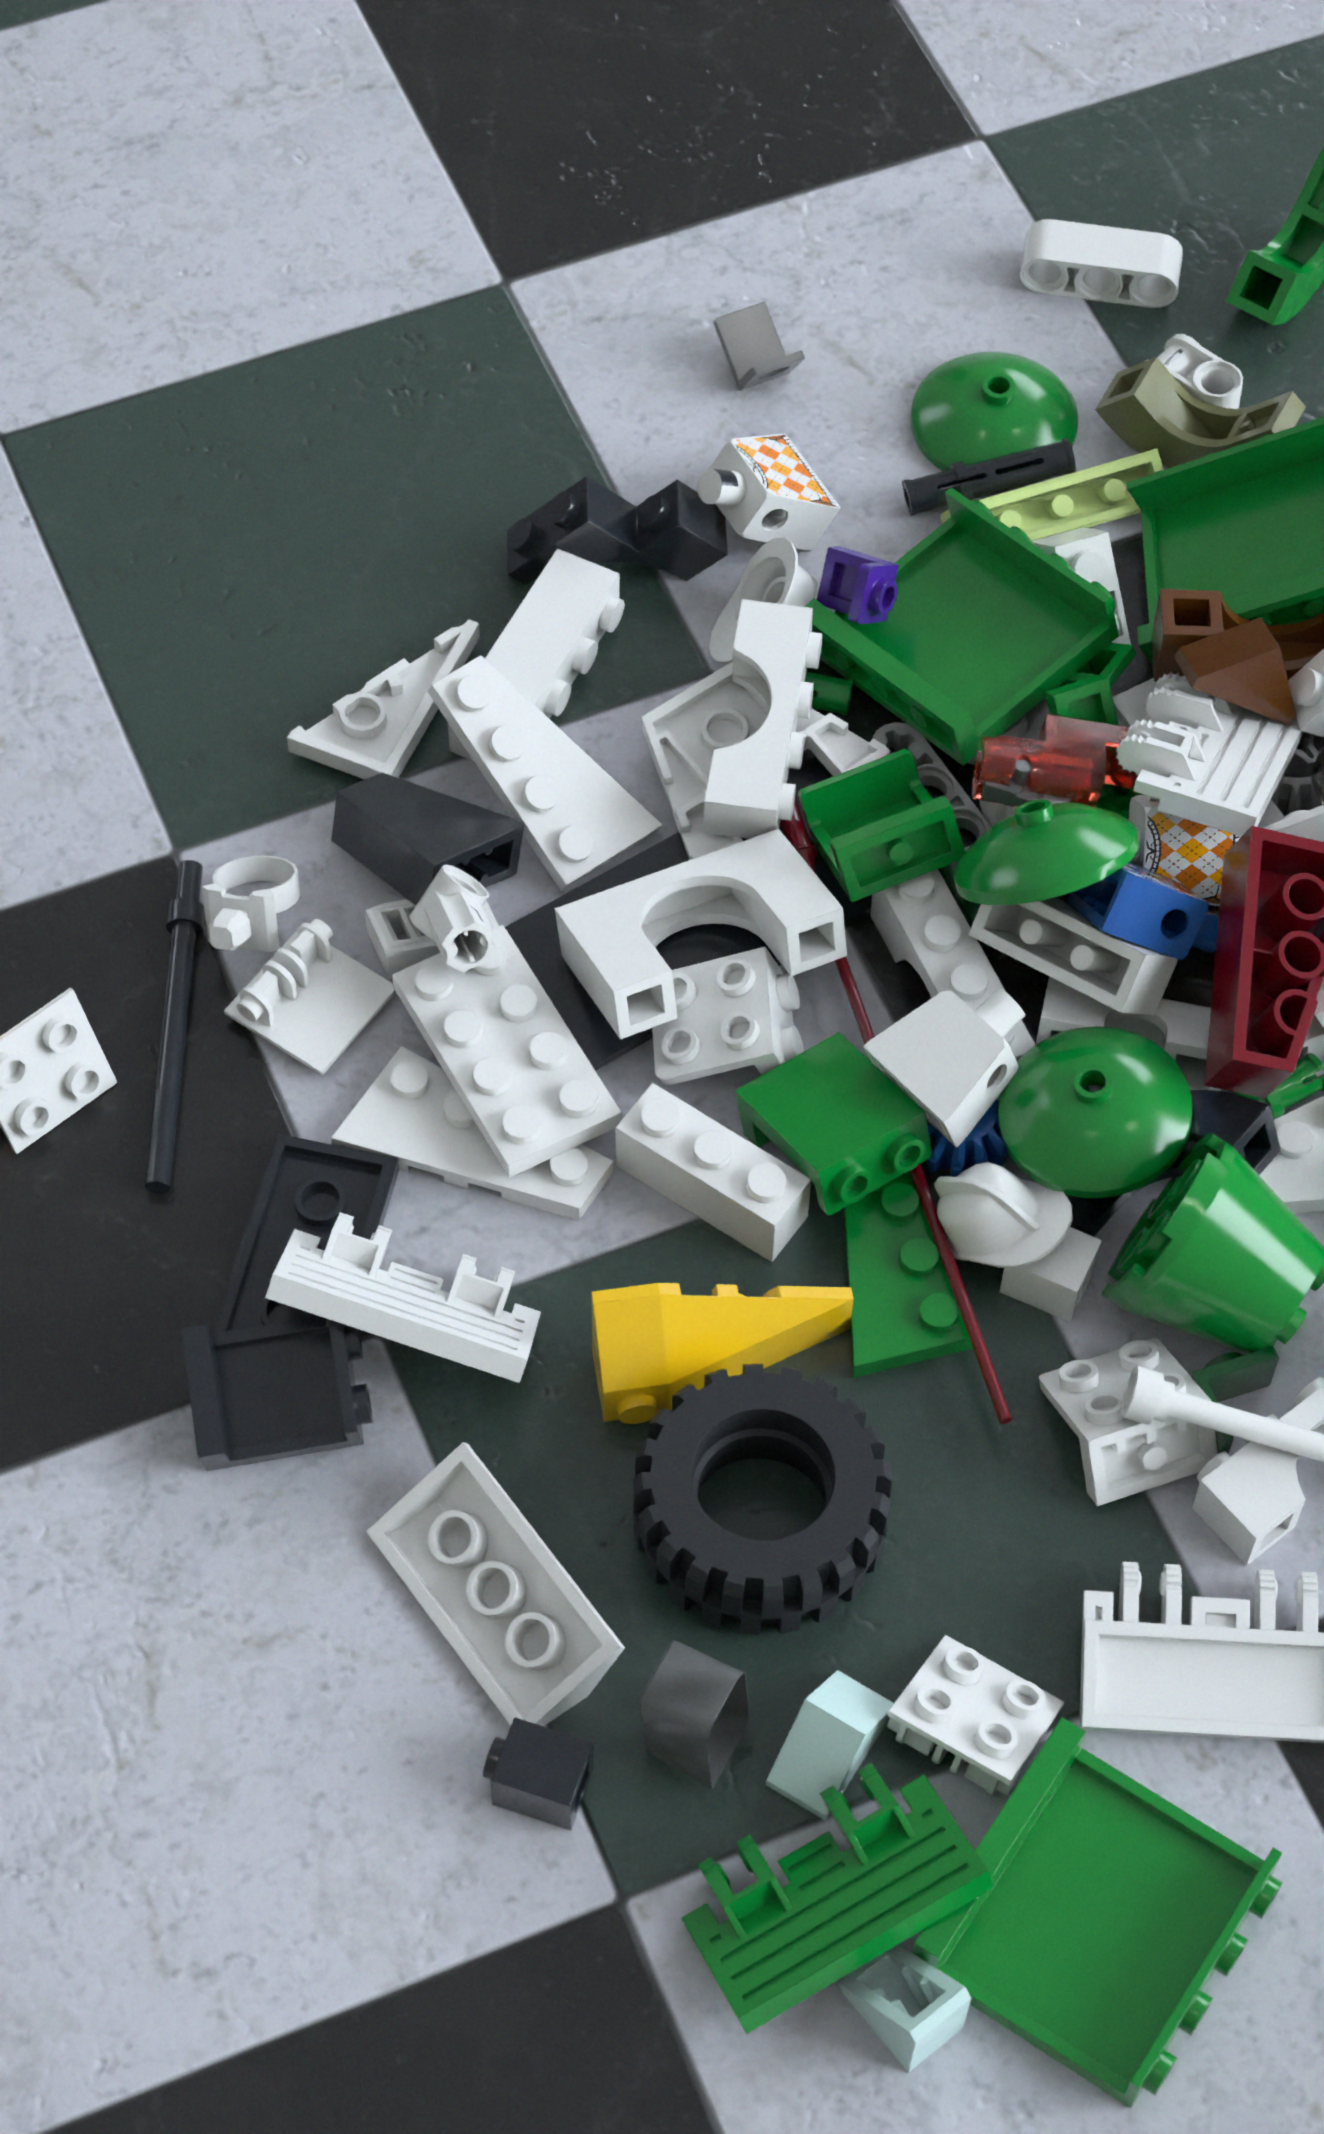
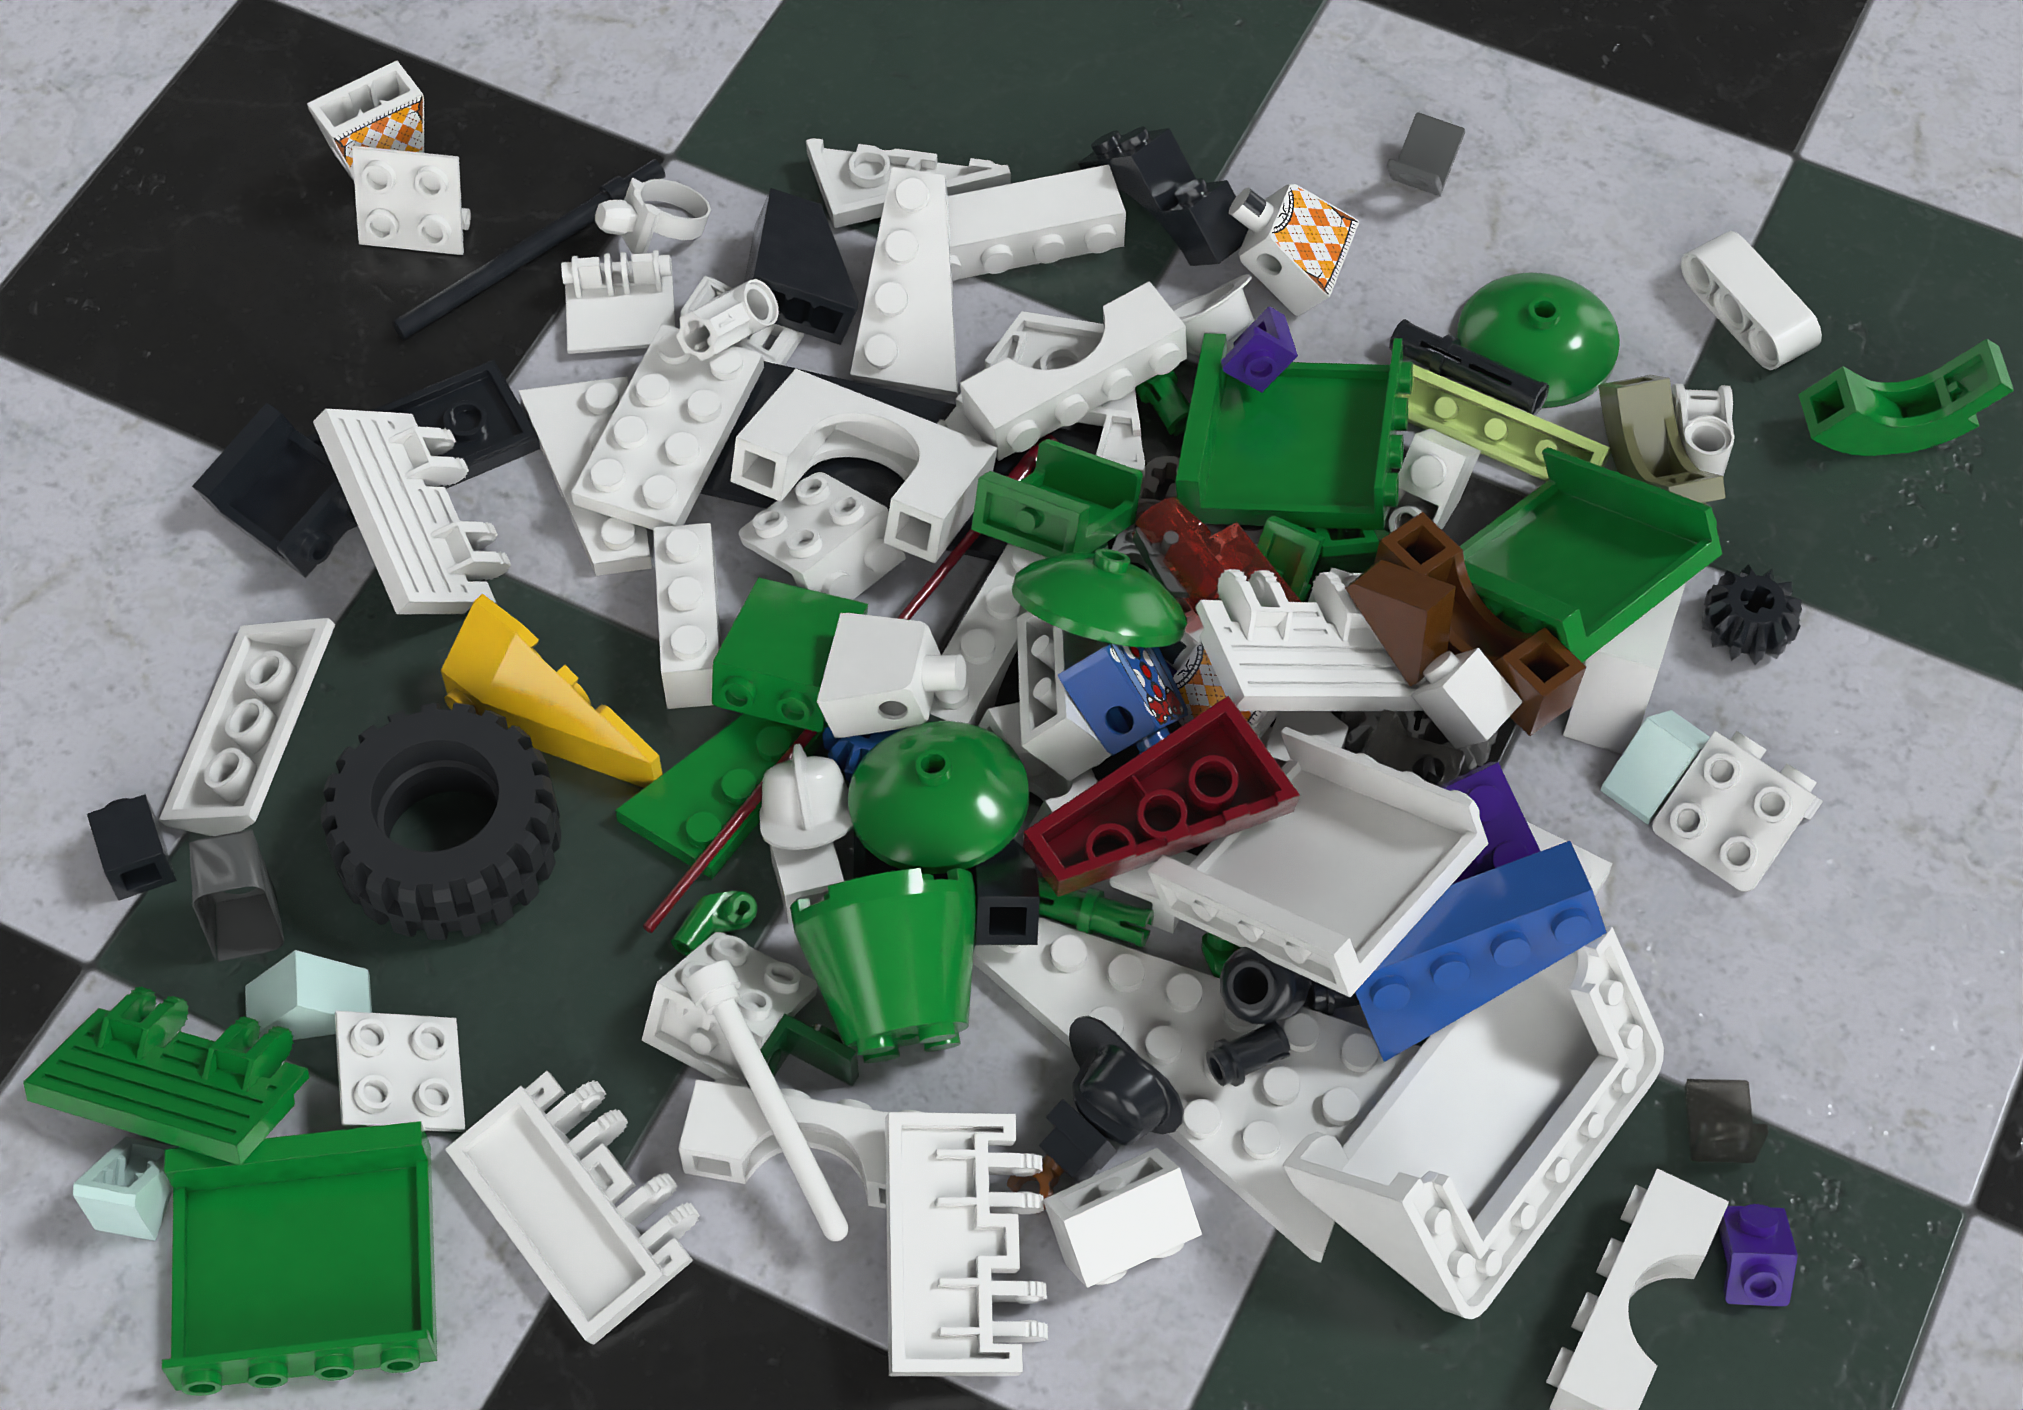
camera: 50 degrees right, 0 degrees up
(1024, 1365) = (714, 914): none -> green arm

